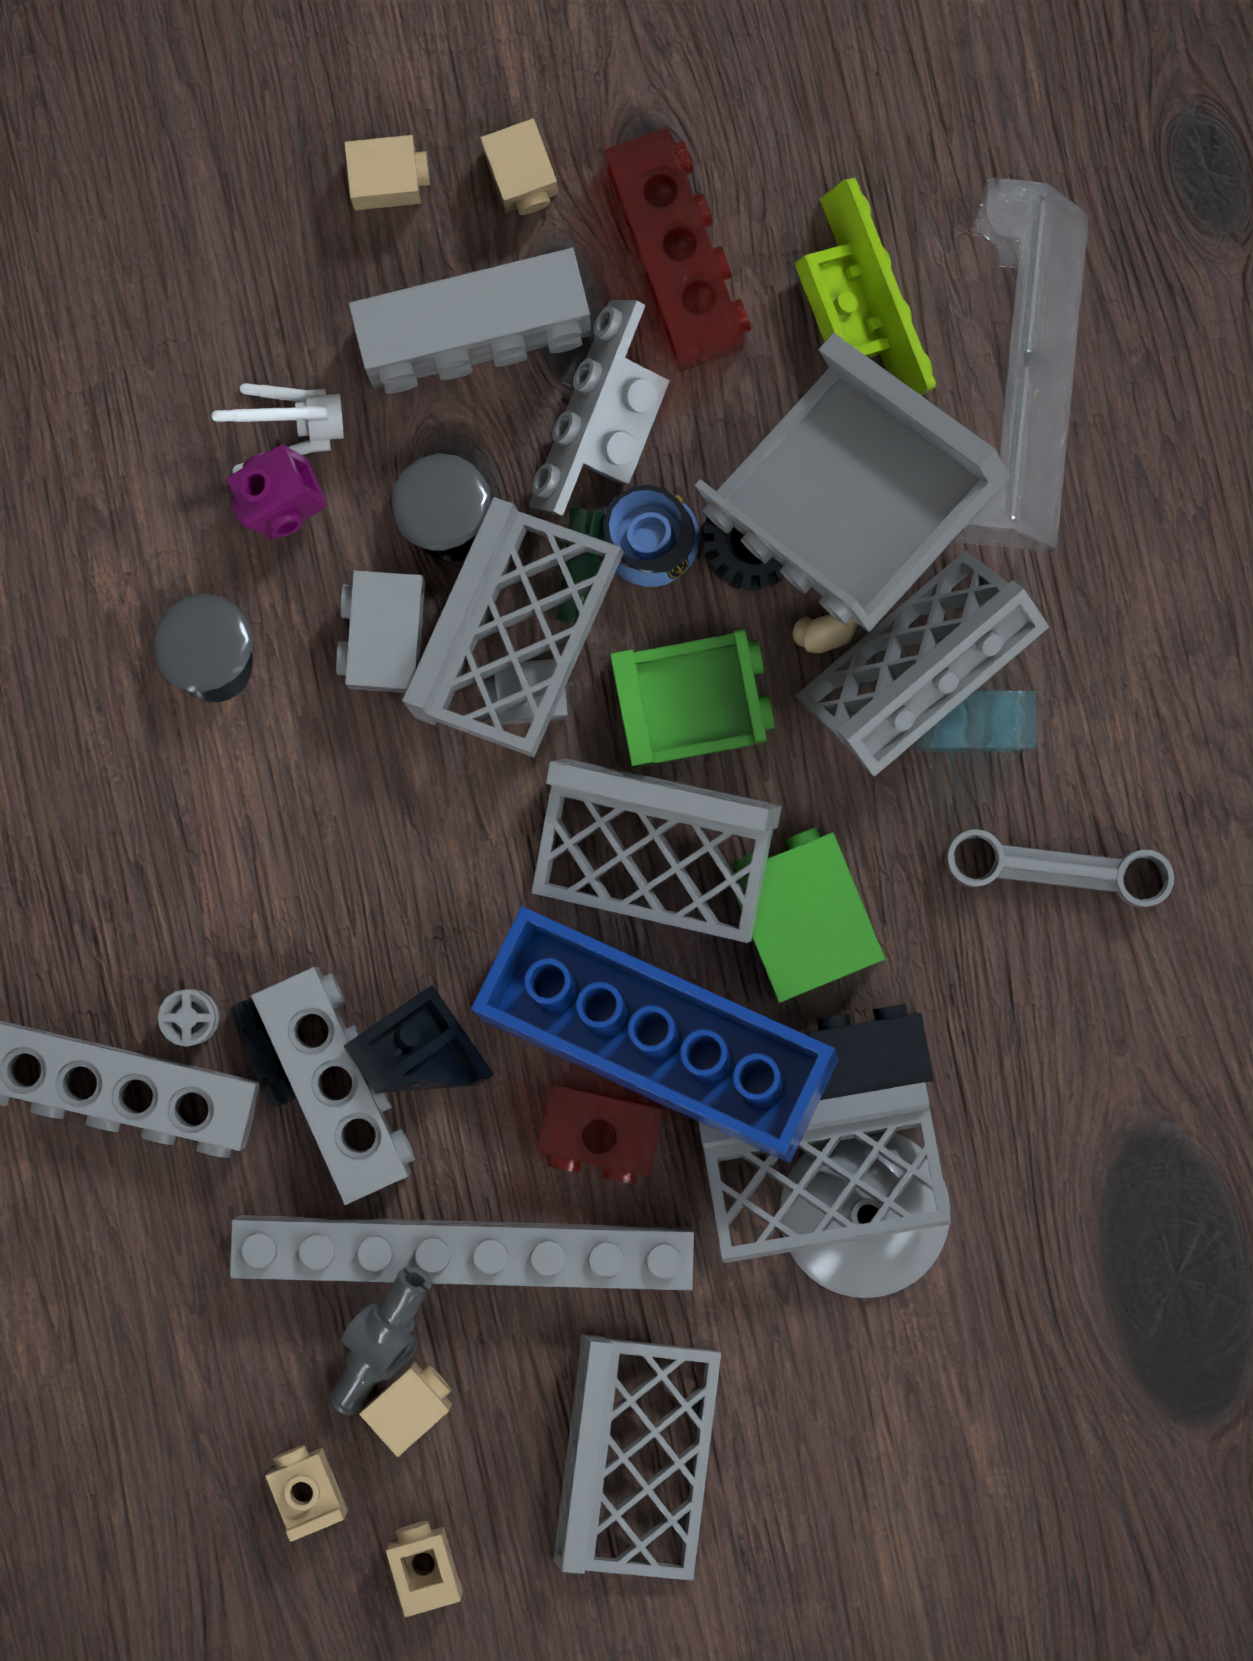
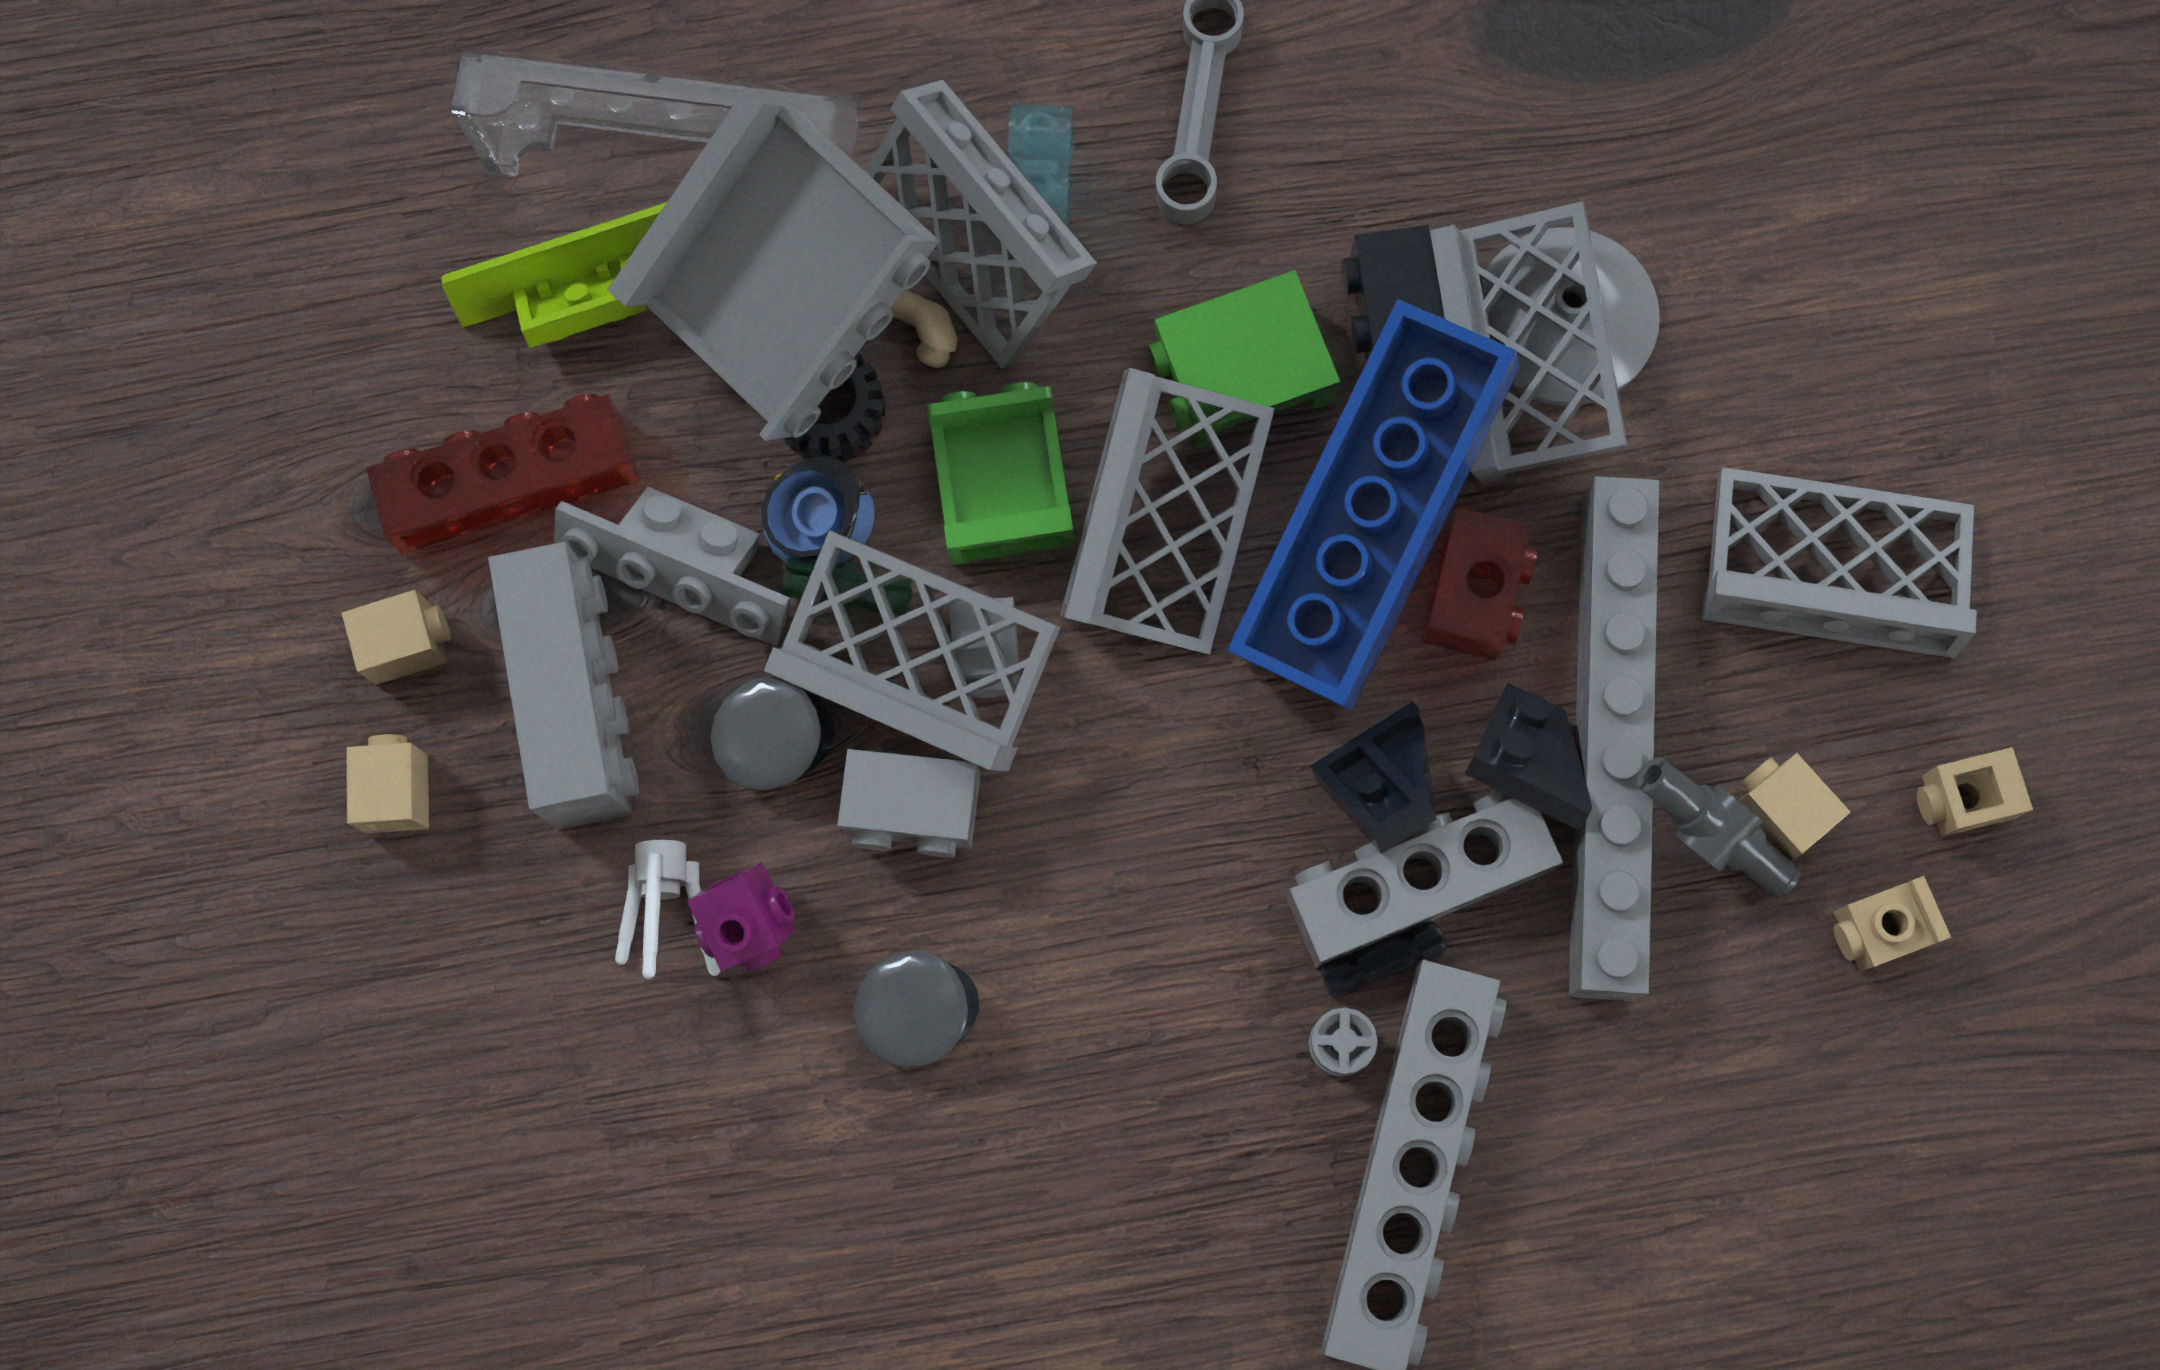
camera: 80 degrees left, 10 degrees down
(440, 1178) = (1532, 757): none -> black wing

